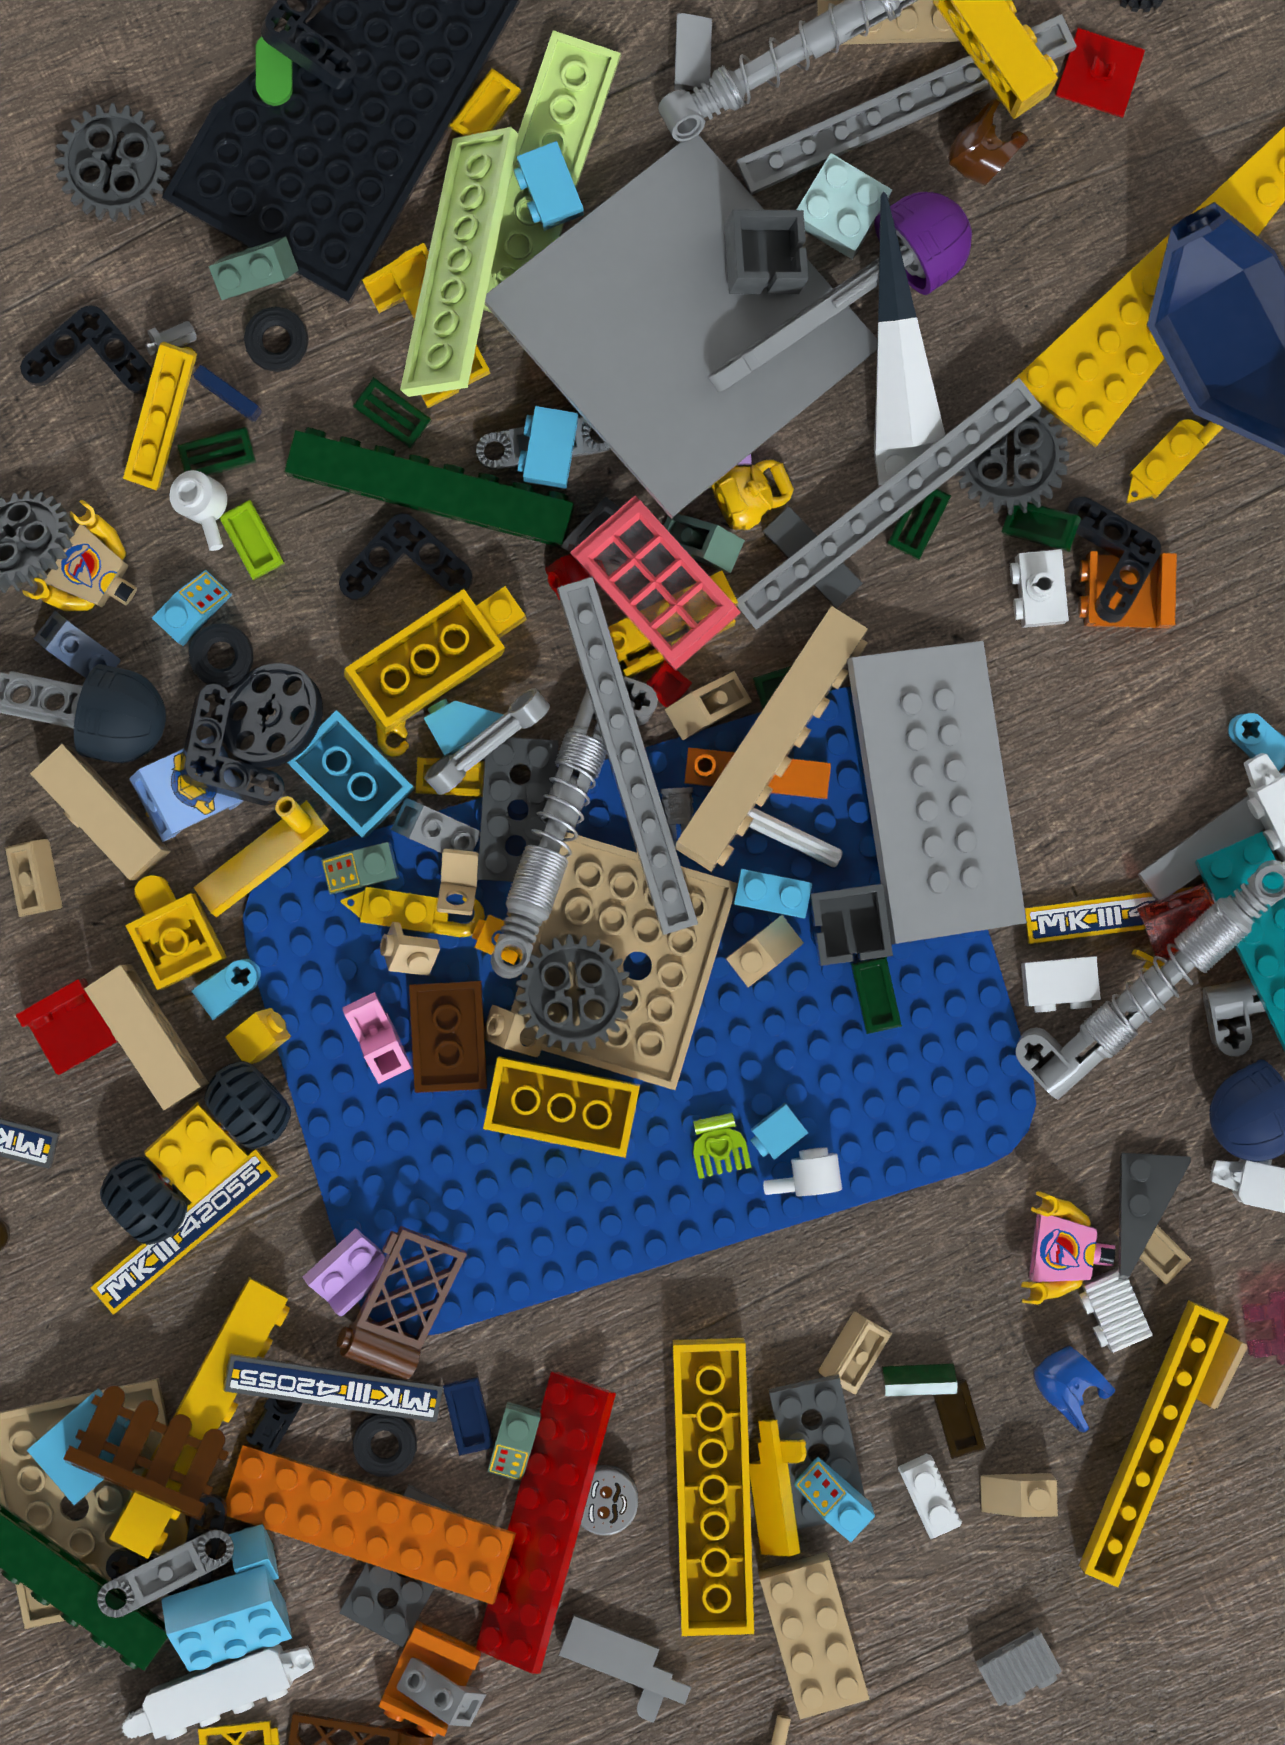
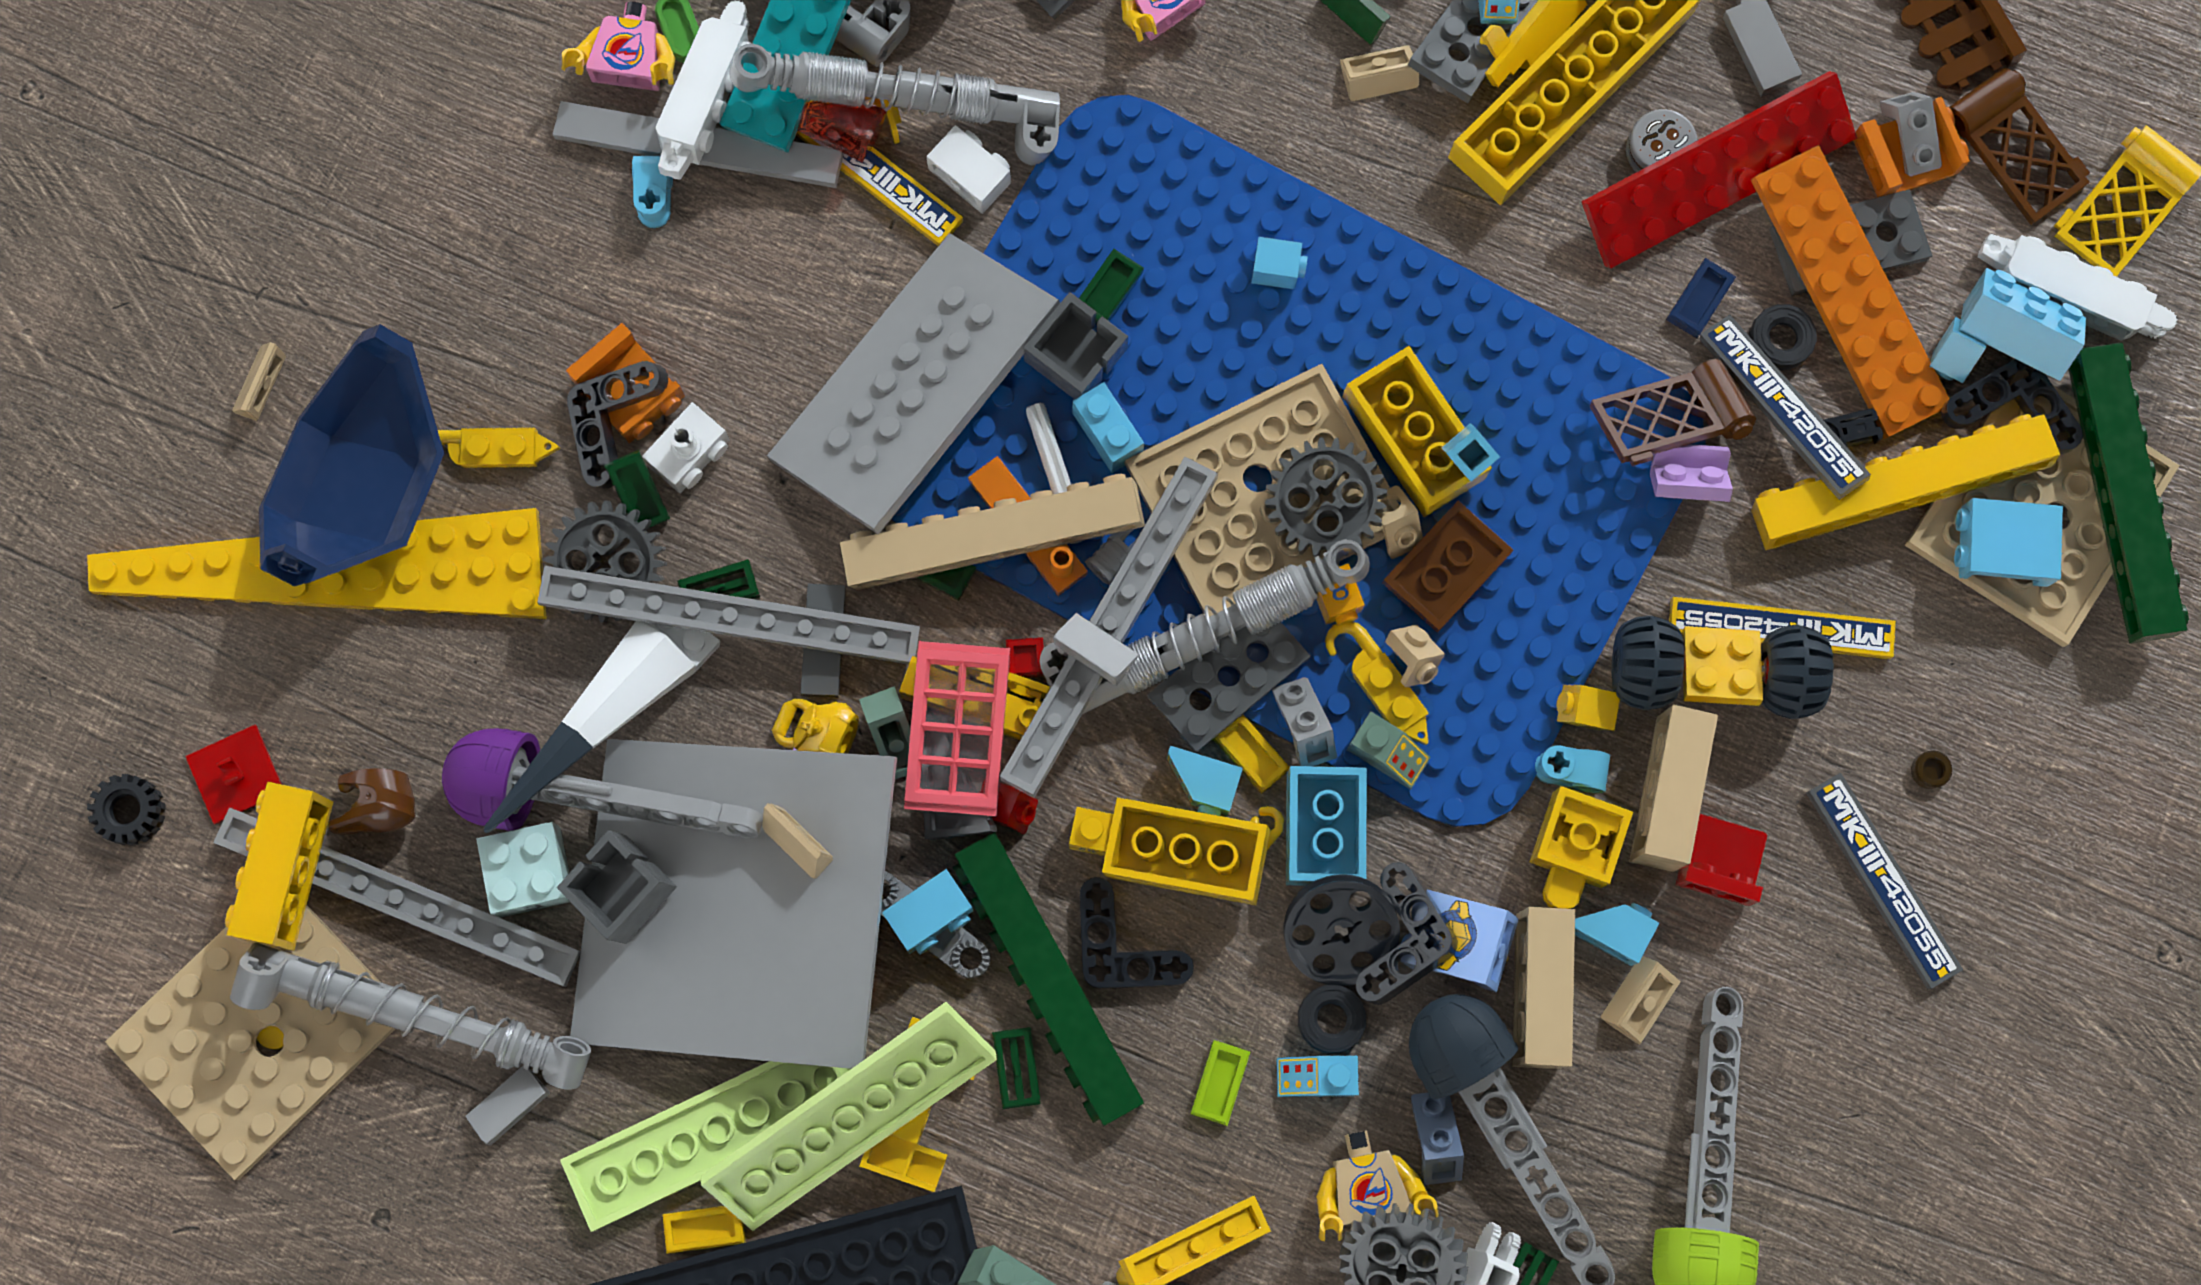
camera: 135 degrees left, 10 degrees down
(92, 905) = (1619, 931): none -> medium azure slope
(129, 1451) = (1973, 463): reddish brown fence -> none
(165, 1573) = (2040, 393): light grey plate -> none
(201, 501) = (1228, 1149): white piece -> none
(216, 439) = (1208, 1193): dark green tile -> none
(227, 393) = (1125, 1212): dark blue tile -> none
(262, 857) = (1453, 836): yellow piece -> none
(276, 317) = (1068, 1223): black tyre -> none
(377, 1037) = (1502, 613): bright pink brick -> none
(458, 877) = (1322, 672): tan bracket -> none
(504, 1117) = (1470, 452): none -> medium azure brick
(514, 1441) = (1683, 247): sand green slope -> none
(522, 713) = (1149, 736): light grey piece -> none
(549, 186) = (721, 1110): medium azure brick -> none
(618, 727) = (1095, 648): none -> slope
(679, 399) = (795, 840): none -> tan slope
(708, 705) = (1012, 610): tan slope -> none
(718, 1141) = (1327, 300): lime piece -> none
(764, 951) = (1157, 395): tan slope -> none
(813, 1174) = (1284, 207): white piece -> none

